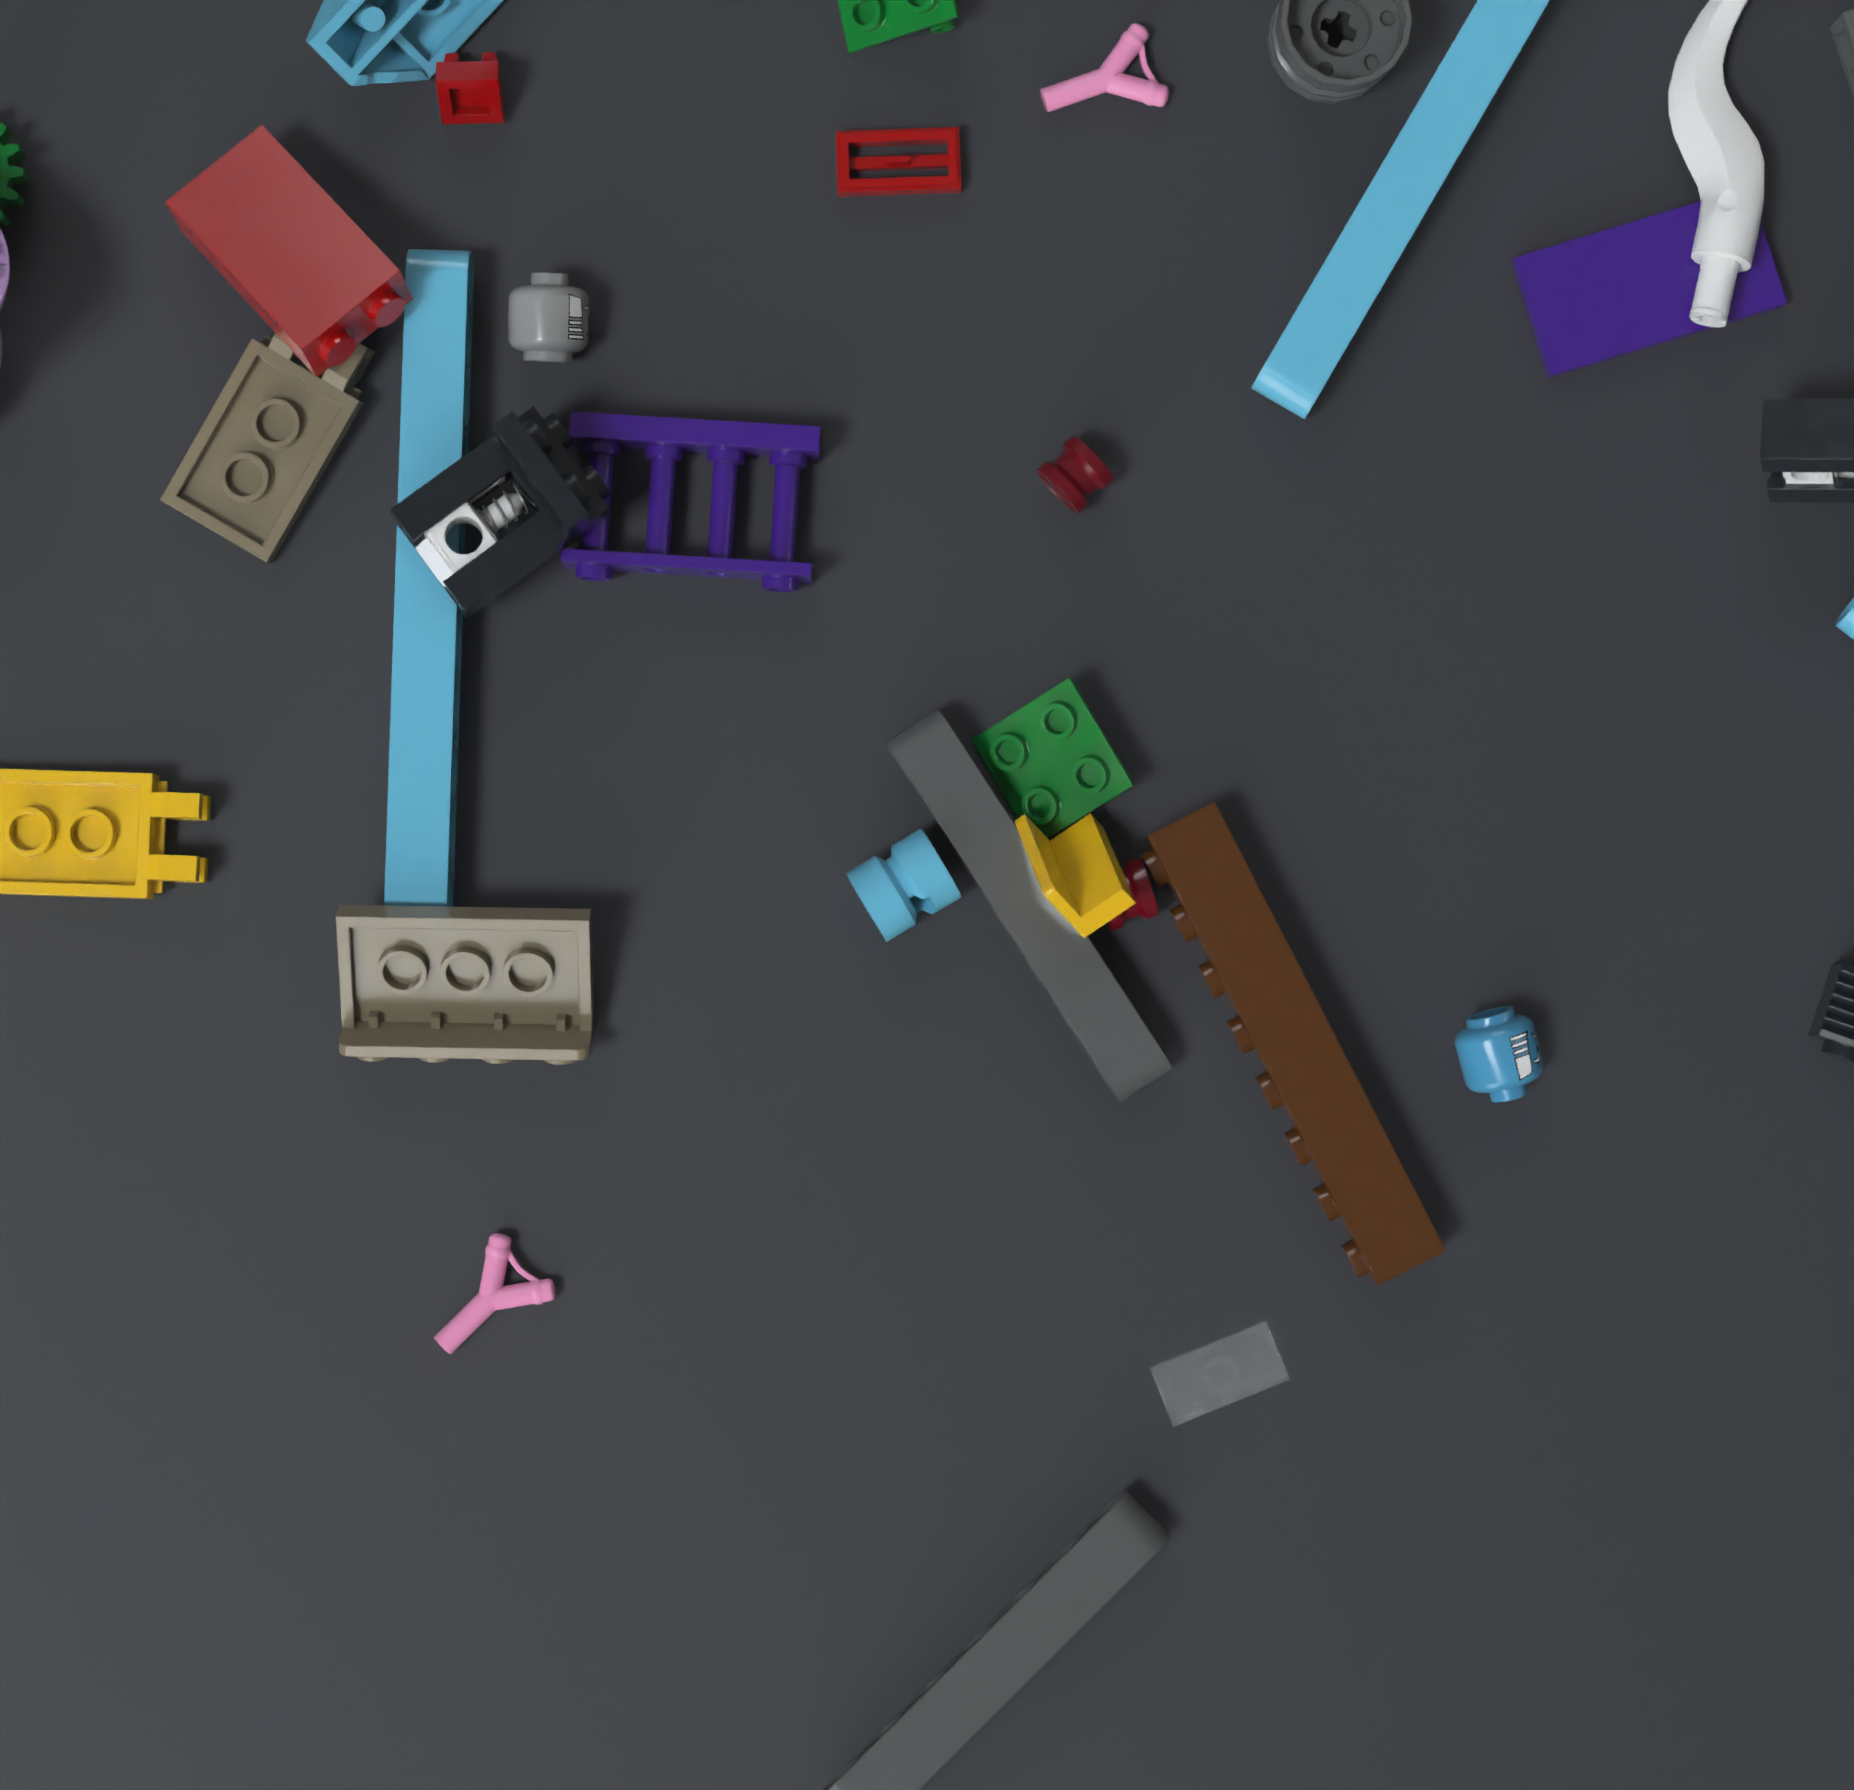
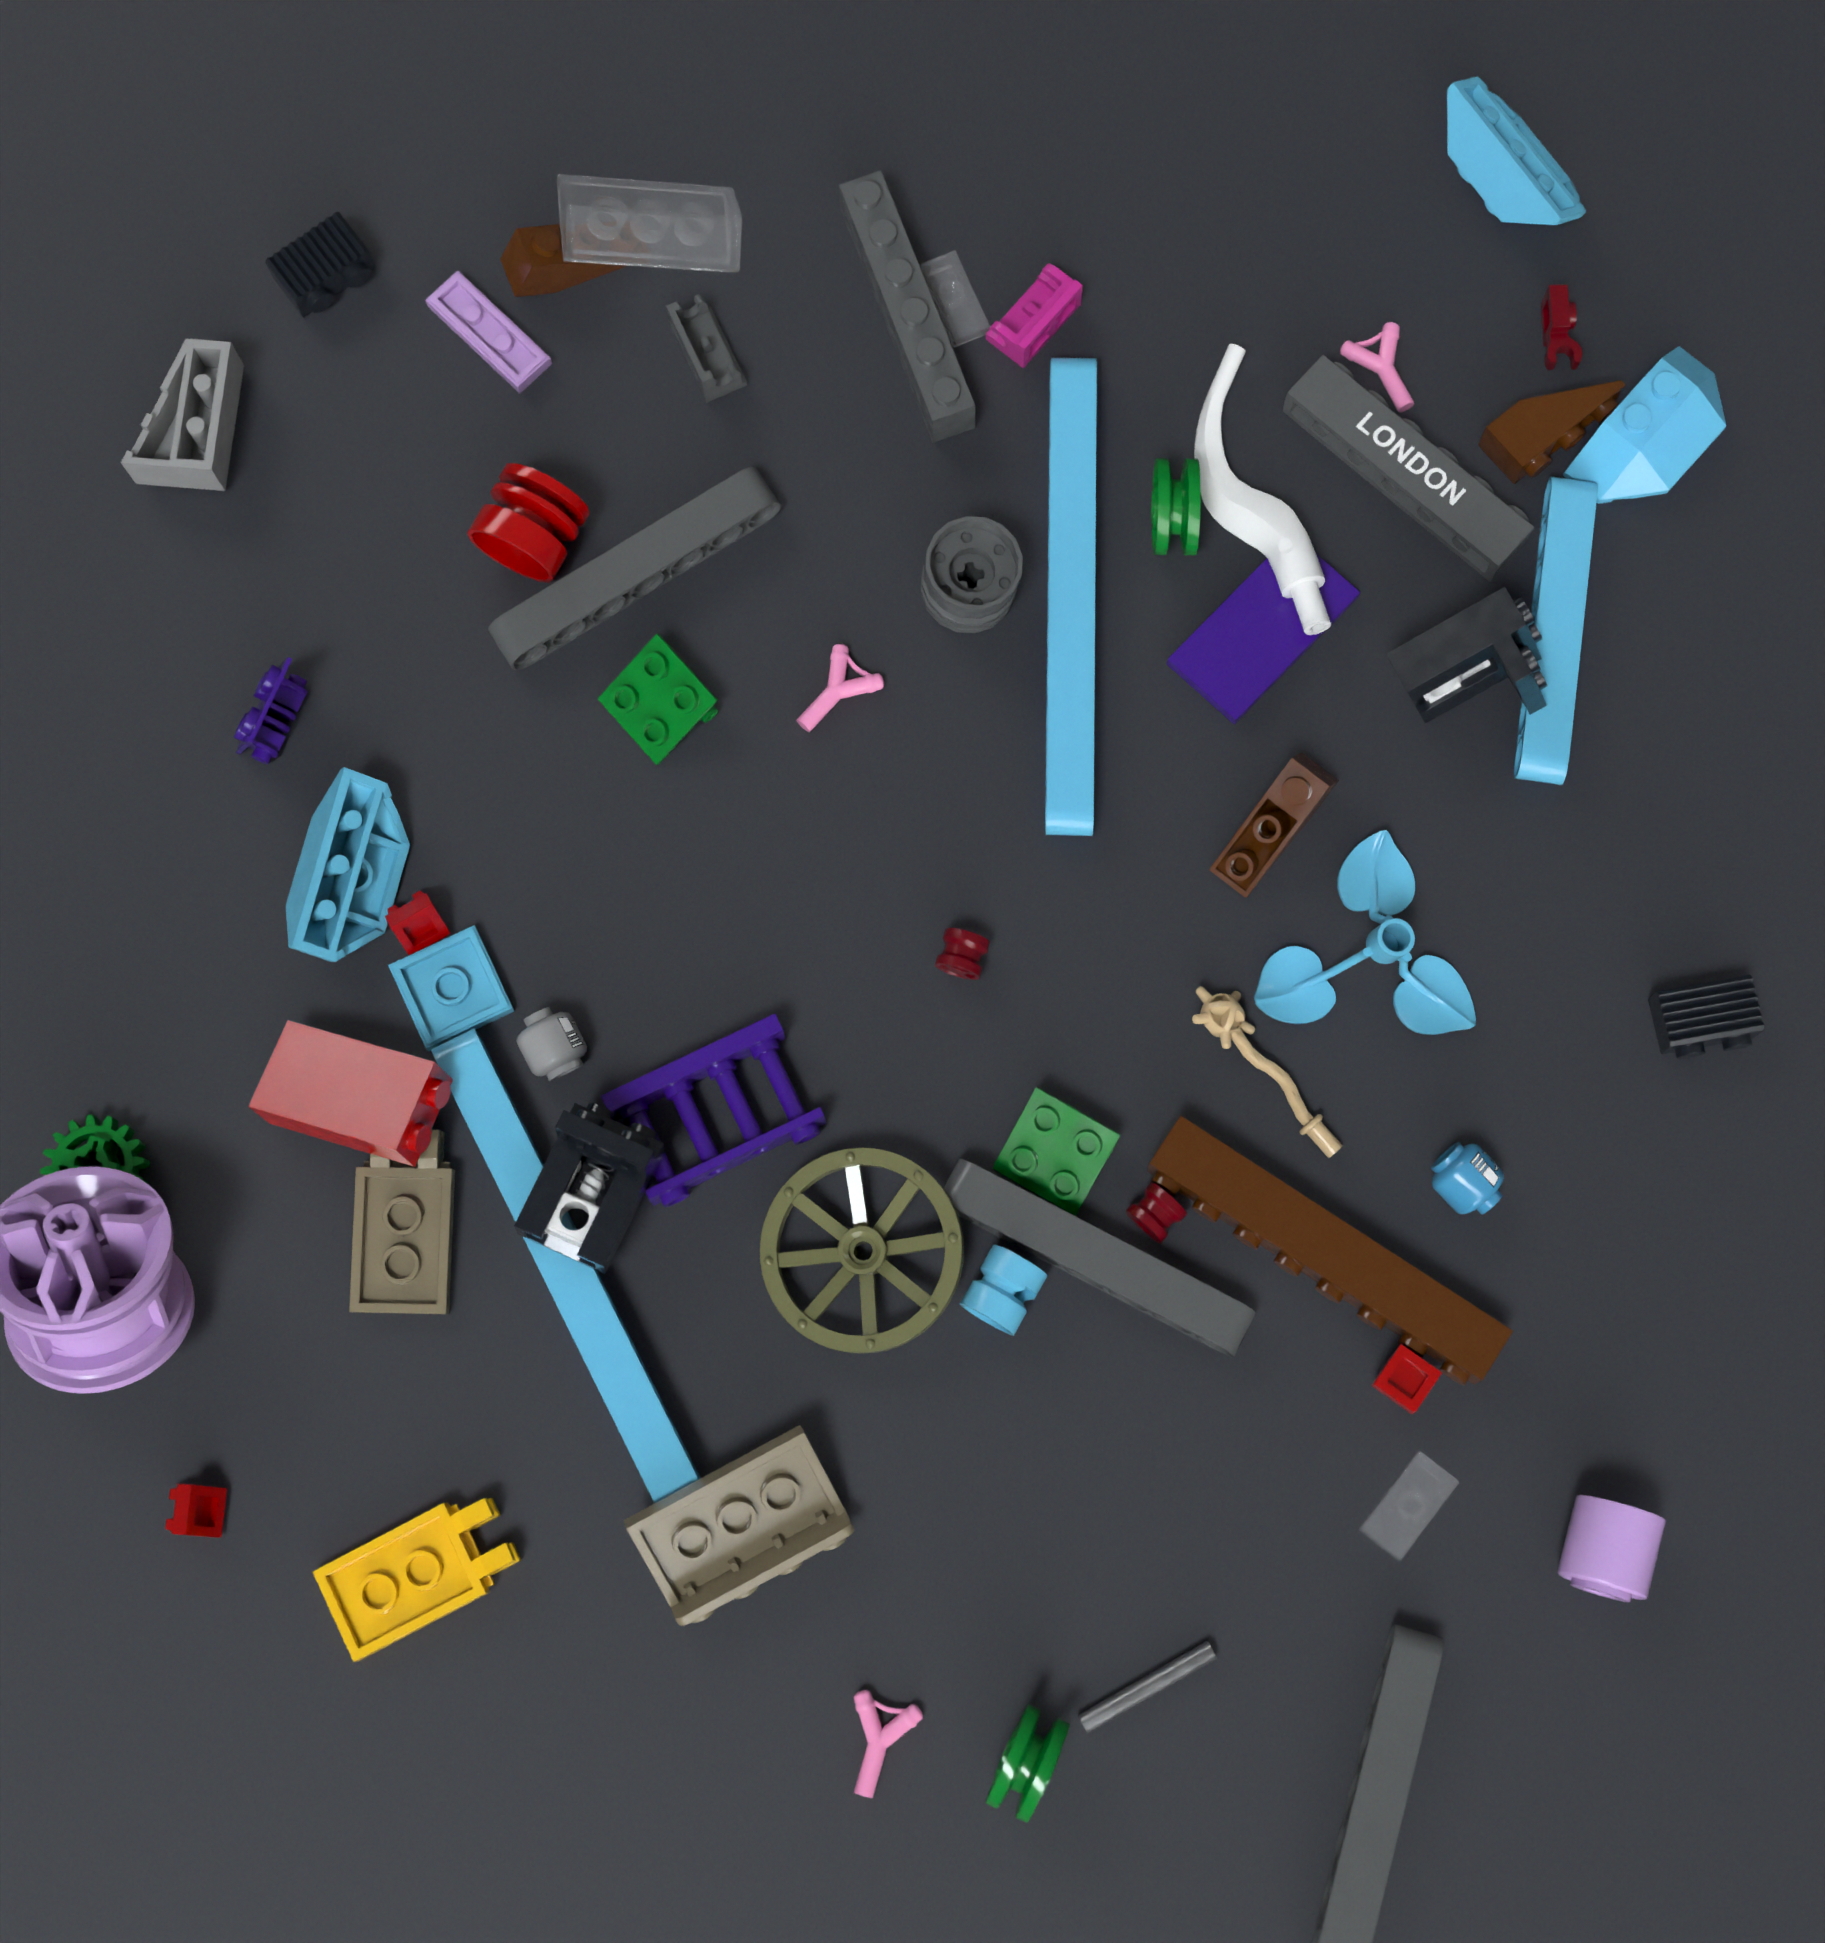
camera: 25 degrees left, 10 degrees down
(470, 187) = (451, 987): none -> medium azure tile
(636, 1413) = (1027, 1763): none -> green wheel
(753, 746) = (792, 1195): none -> olive wheel
(816, 1404) = (1147, 1687): none -> flat silver bar
(898, 185) = (738, 831): red tile -> none
(1078, 872) = (1118, 1213): yellow panel -> none
(1296, 1235) = (1406, 1379): none -> red tile
(1332, 718) = (1226, 1020): none -> tan piece
(1410, 1545) = (1611, 1548): none -> lavender piece
(1523, 522) = (1273, 823): none -> reddish brown slope
(1605, 657) = (1381, 881): none -> medium azure plant
(1627, 80) = (1175, 506): none -> green wheel

